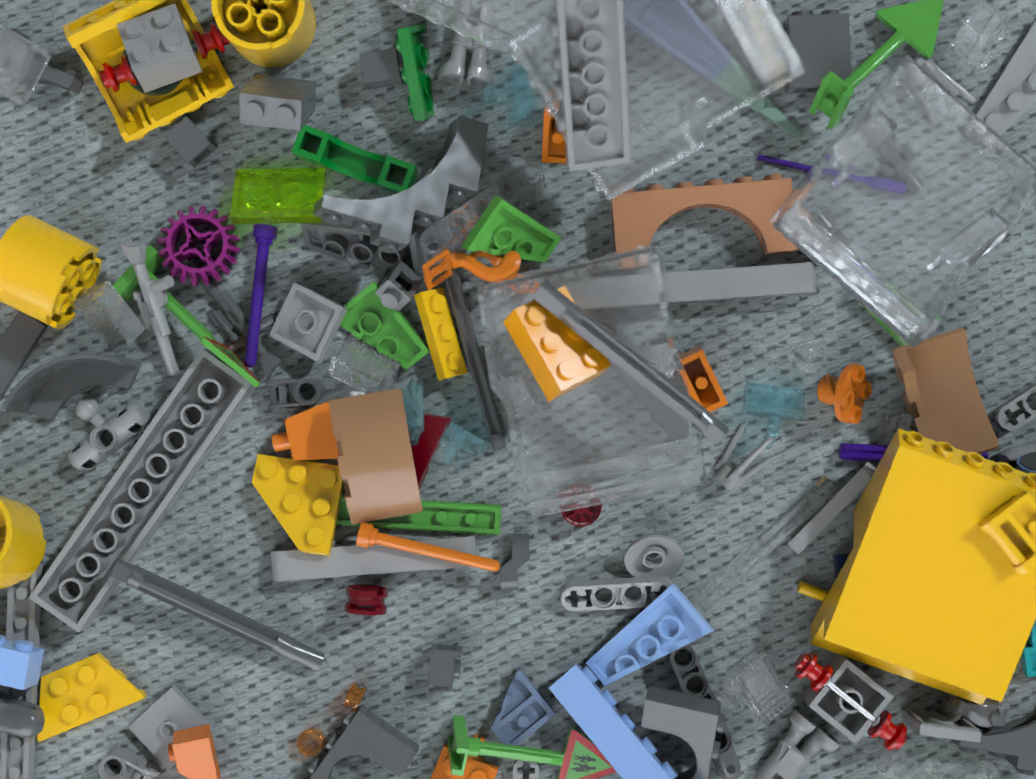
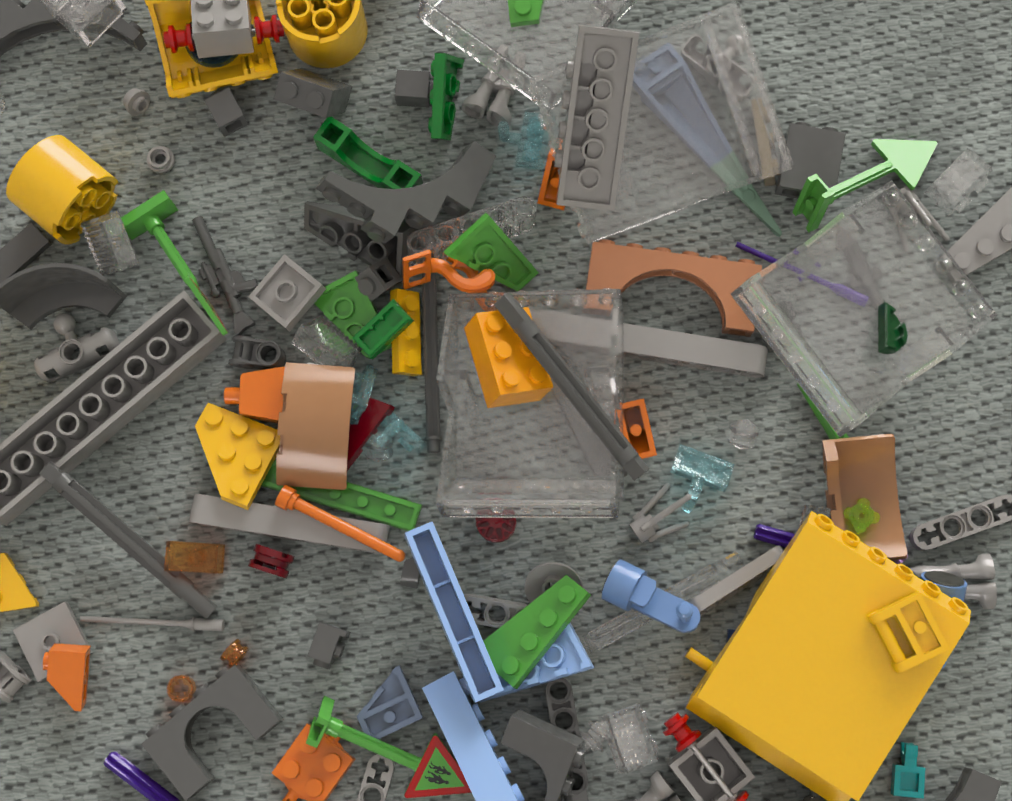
camera: 20 degrees right, 10 degrees down
(91, 152) = (136, 101): none -> light grey plate
(126, 209) = (157, 152): none -> light grey plate
(154, 298) = (149, 248): light grey piece -> none
(208, 240) = (196, 205): magenta gear -> none
(264, 237) = (269, 208): dark purple piece -> none
(277, 195) = (288, 174): clear neon green plate -> none
(288, 614) = (194, 557): none -> clear orange plate
(304, 677) = (194, 623): none -> light grey piece
(417, 339) = (382, 329): none -> green plate
(564, 612) = (453, 612): none -> light blue brick
(641, 613) = (532, 631): none -> bright green wing
(730, 541) = (632, 589): none -> medium blue piece
(846, 392) = (772, 474): orange plate -> none
(938, 217) = (891, 333): none -> dark green tile
(945, 423) = (861, 524): none -> clear neon green plate

